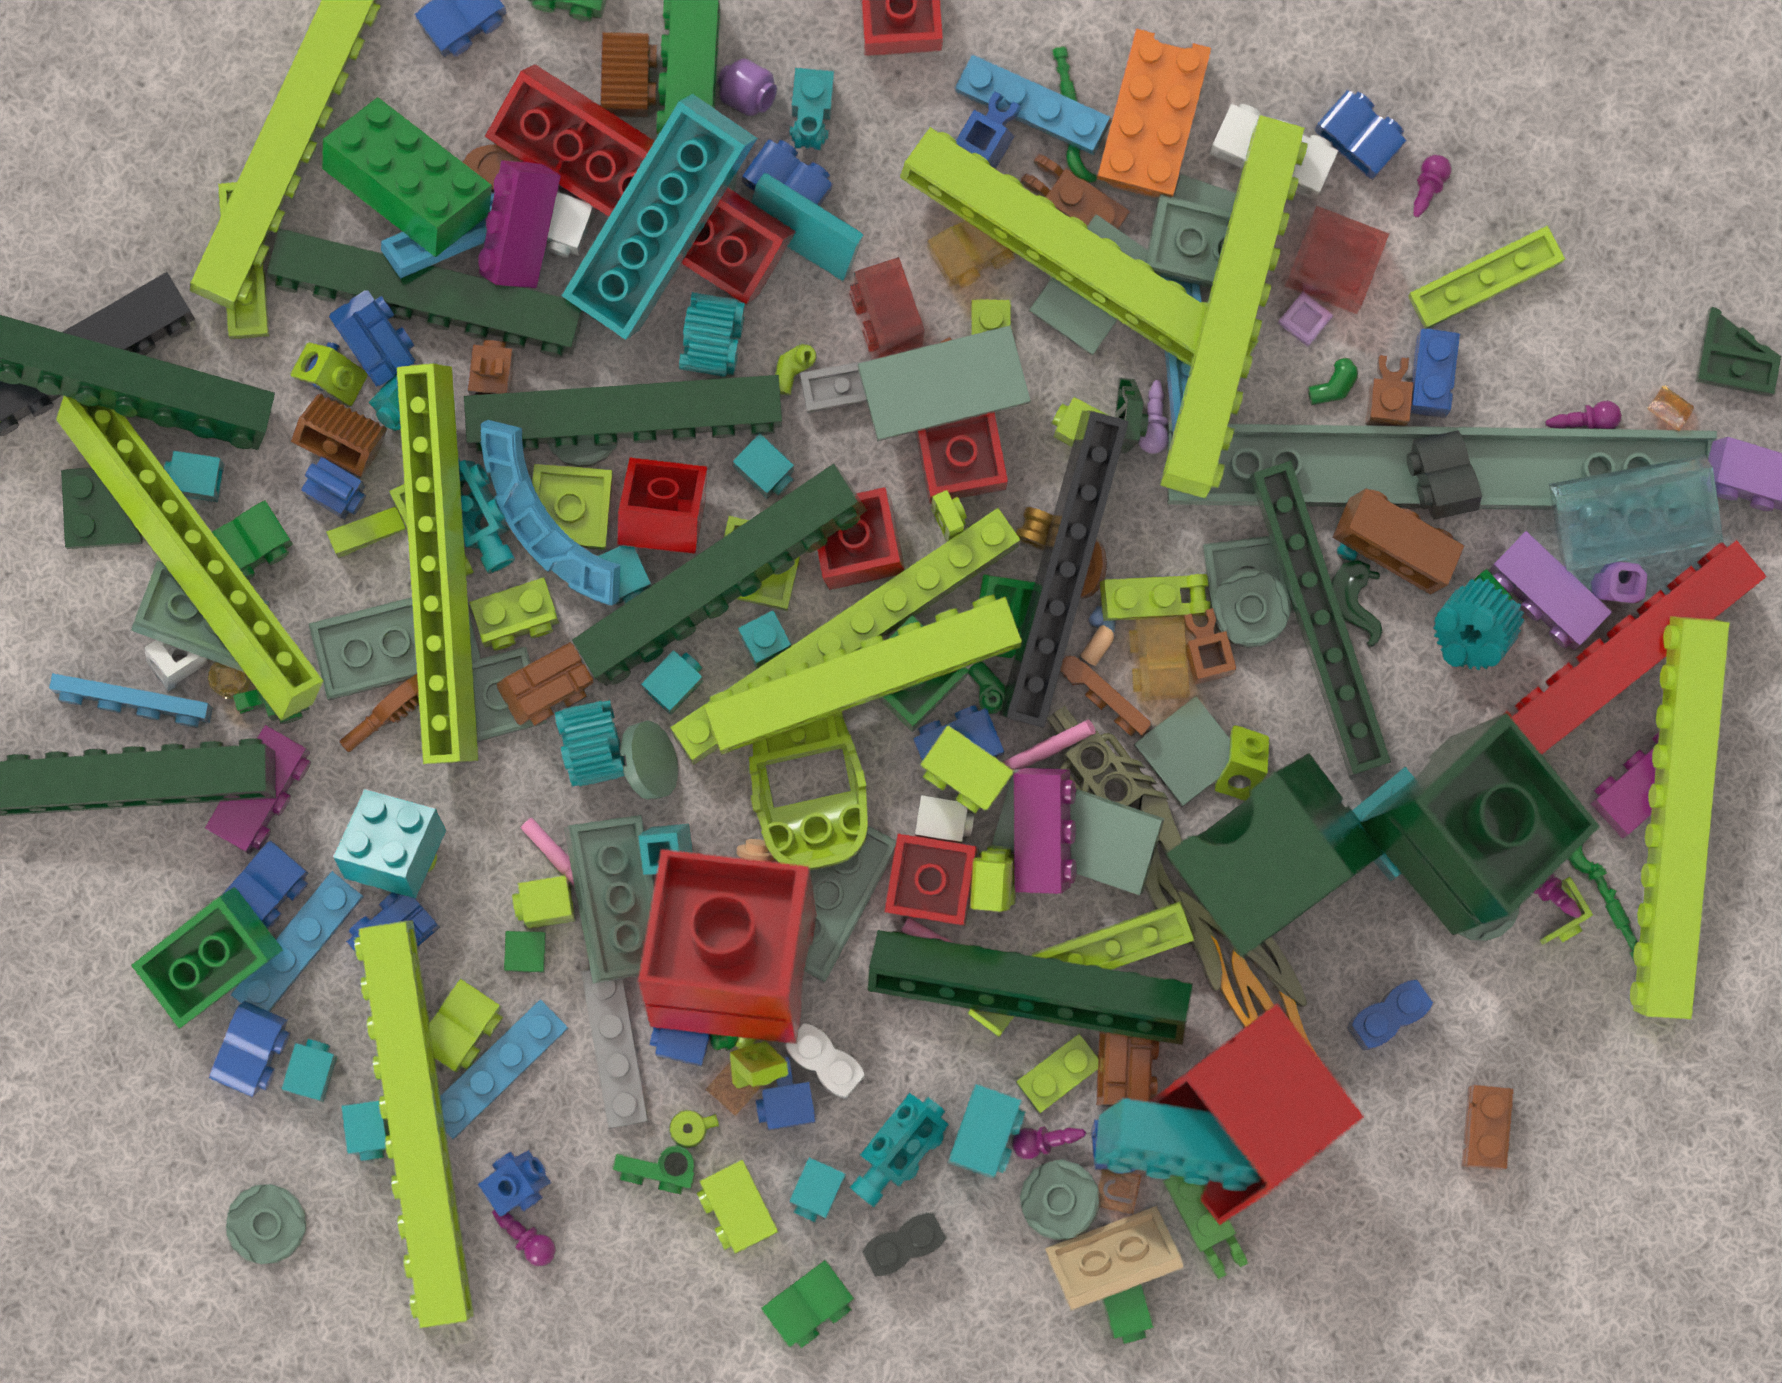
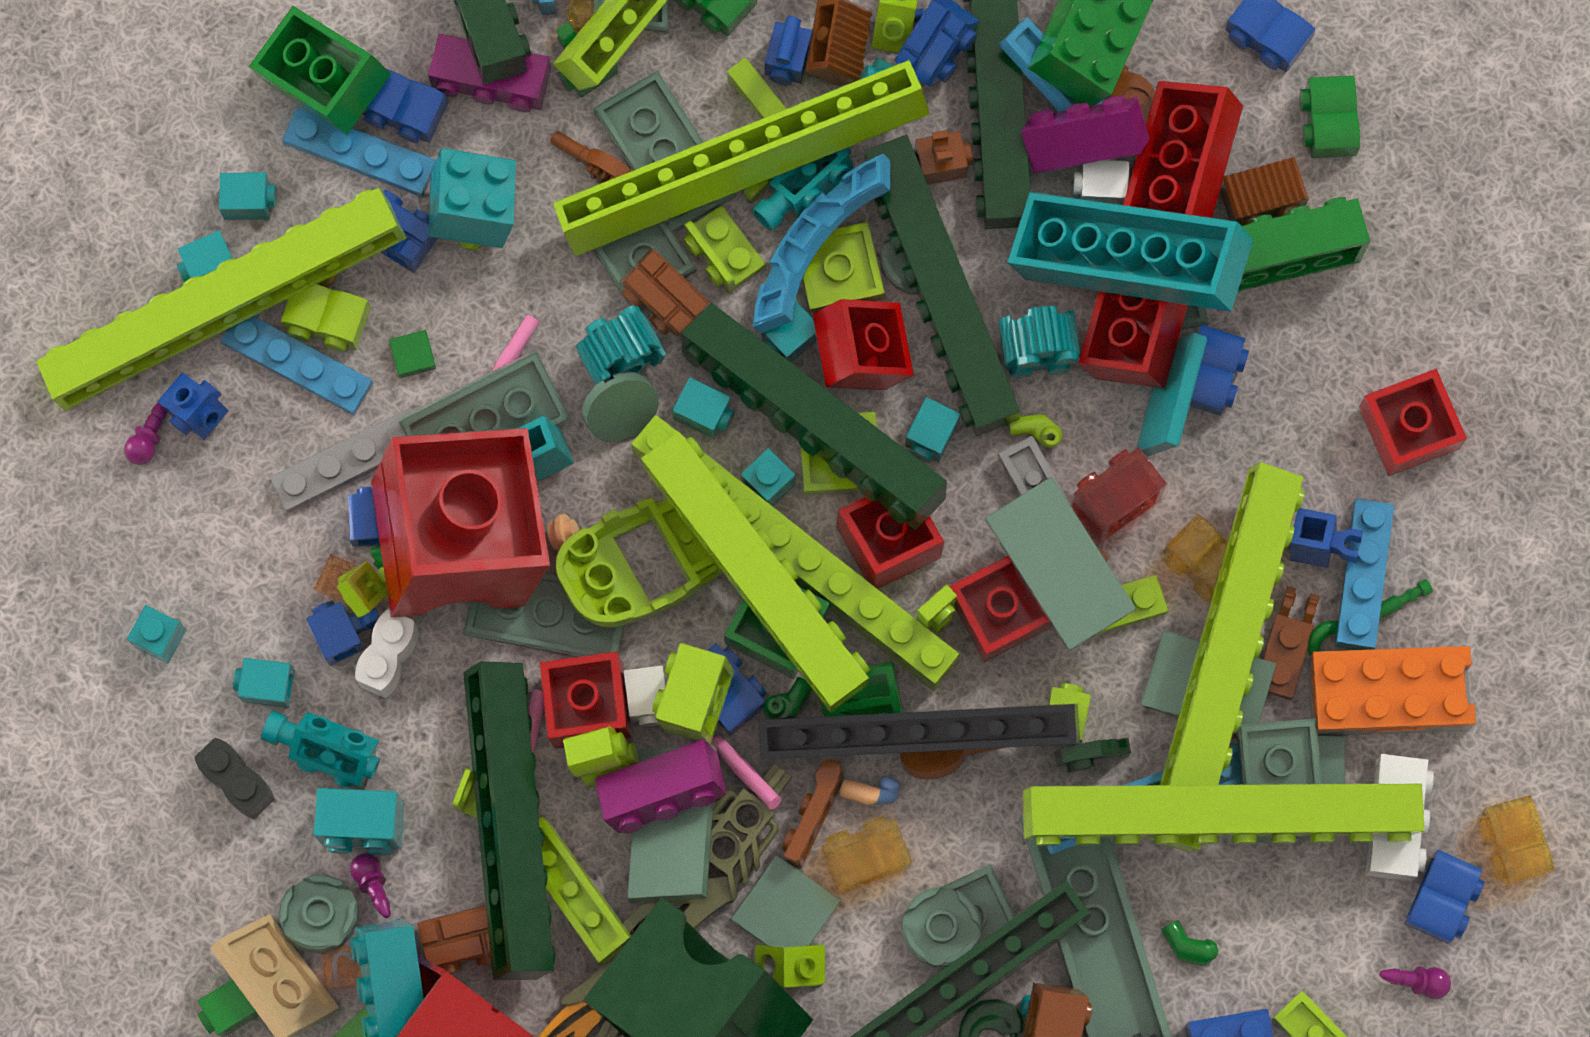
camera: 80 degrees right, 5 degrees down
(249, 1049) = (250, 136): blue brick -> none
(279, 1227) = (106, 212): sand green tile -> none
(544, 902) = (458, 351): lime brick -> none
(635, 1170) = (237, 513): green plate -> none
(699, 1126) = (297, 557): lime piece -> none
(736, 1282) = (156, 634): none -> teal brick
(737, 1207) = (227, 615): lime brick -> none
(747, 87) = (1289, 306): medium lavender head -> none
(808, 1304) = (156, 707): green brick -> none
(811, 106) = (1297, 367): teal brick -> none
(1035, 527) = (954, 697): pearl gold wheel -> none
(1059, 1073) = (440, 878): lime plate -> none
(1153, 597) = (922, 831): lime plate -> none
(1156, 436) = (1109, 778): lavender bar -> none
(1208, 653) = (884, 898): dark orange brick -> none
(1305, 319) = (1244, 898): lavender tile -> none
(1328, 49) = (1517, 841): none -> clear yellow brick
(1337, 259) = (1310, 909): clear red brick -> none
(1389, 397) = (1191, 1001): dark orange brick -> none

